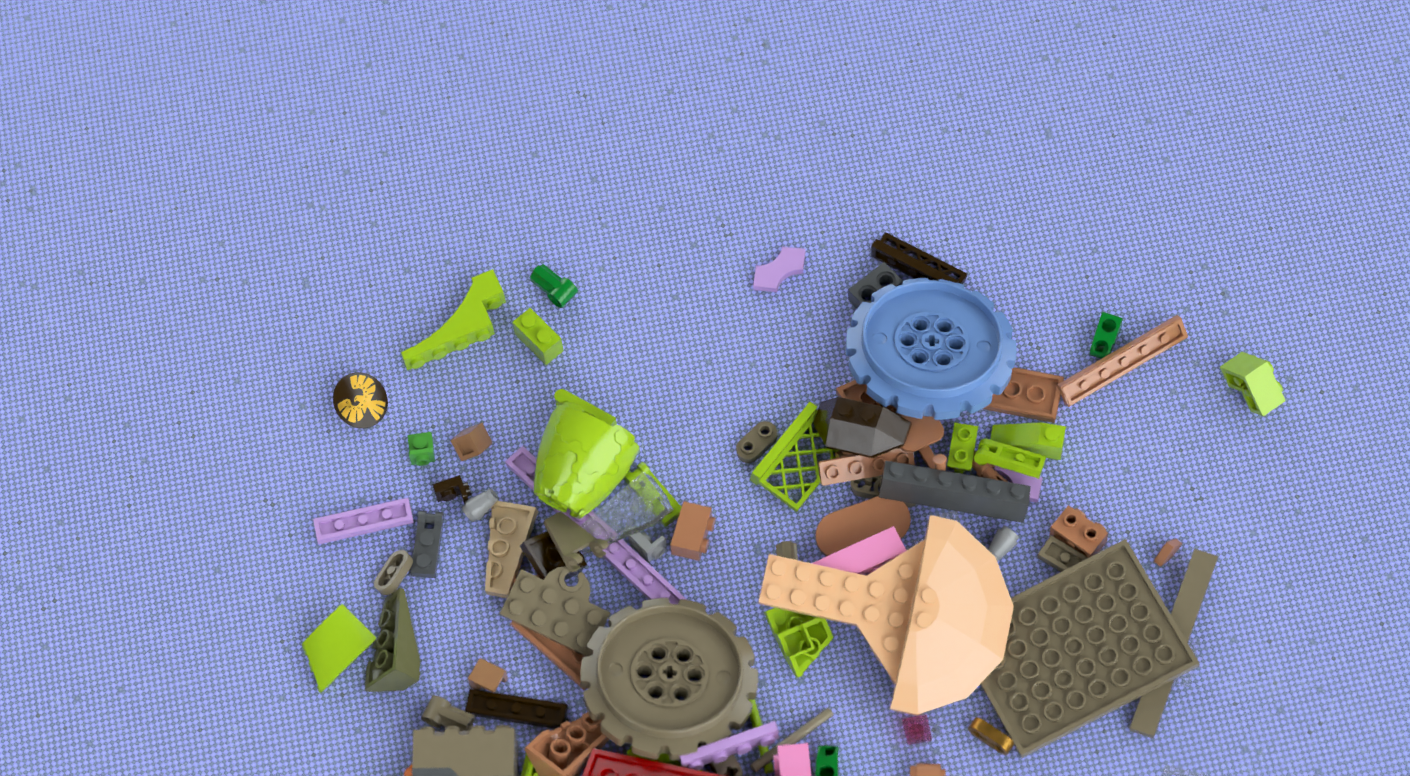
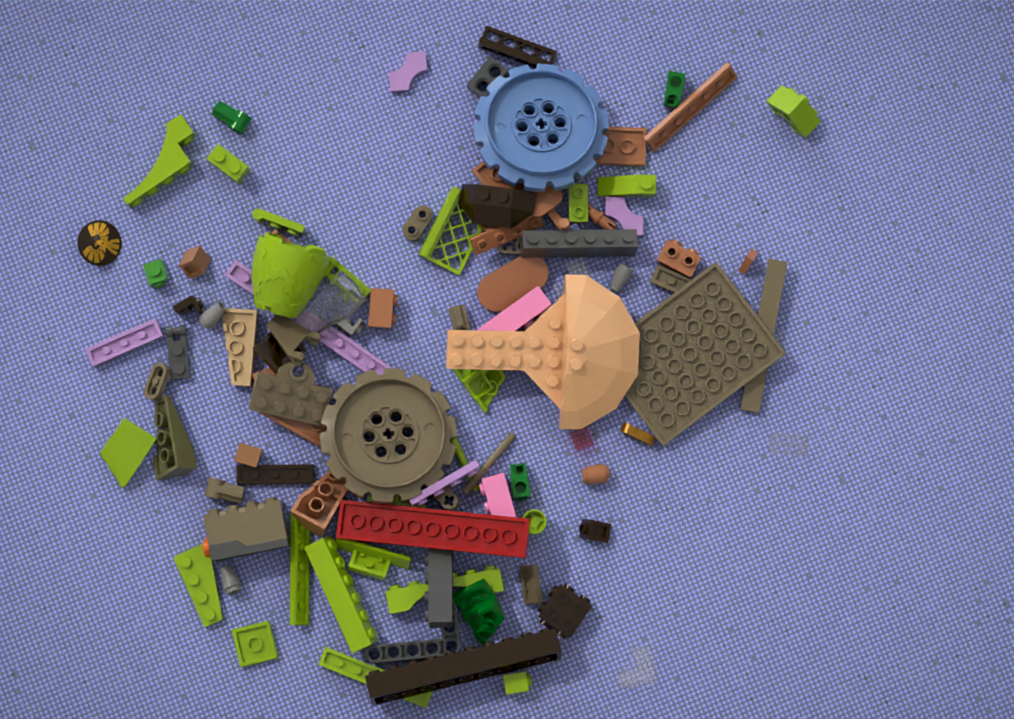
camera: 15 degrees left, 20 degrees up
(1009, 458) = (616, 207): lime plate -> none

